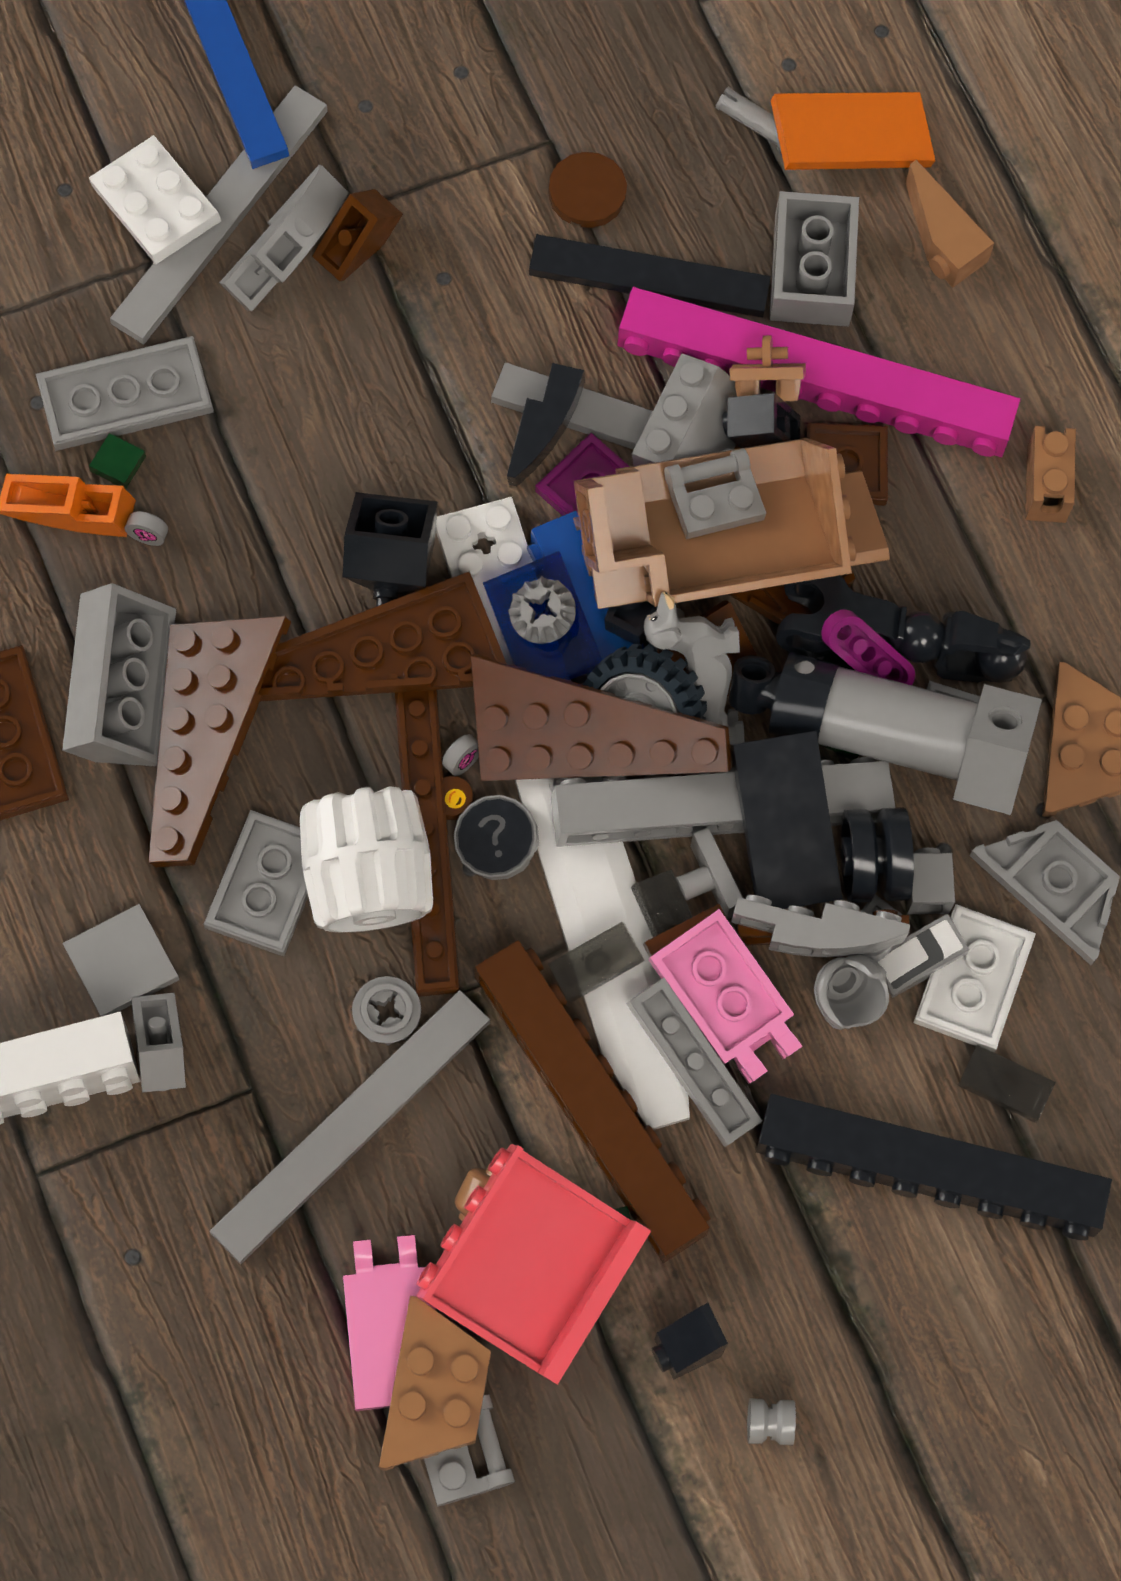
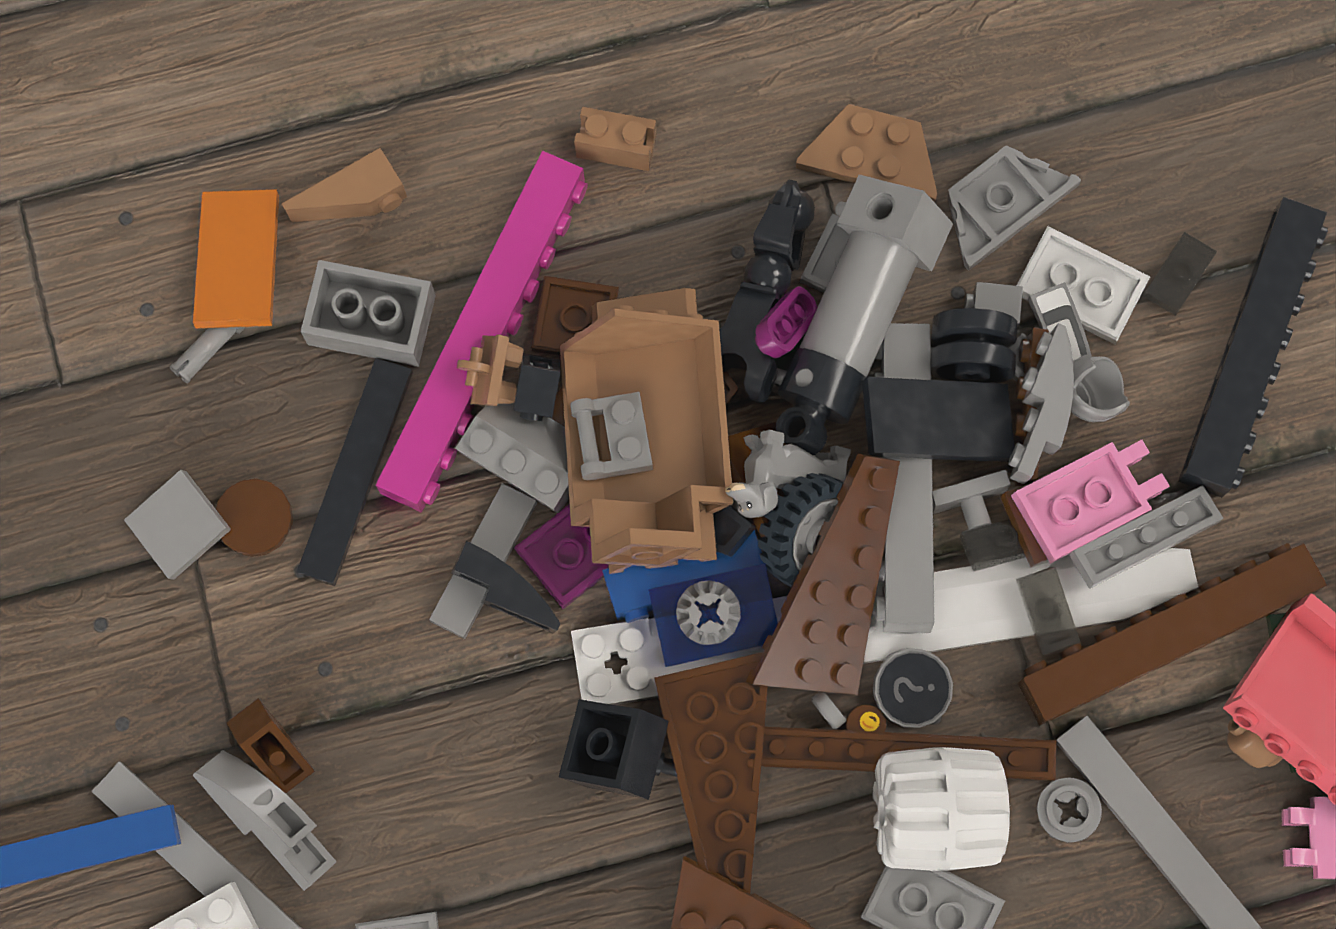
camera: 75 degrees left, 5 degrees up
(568, 119) = (177, 524): none -> light grey tile

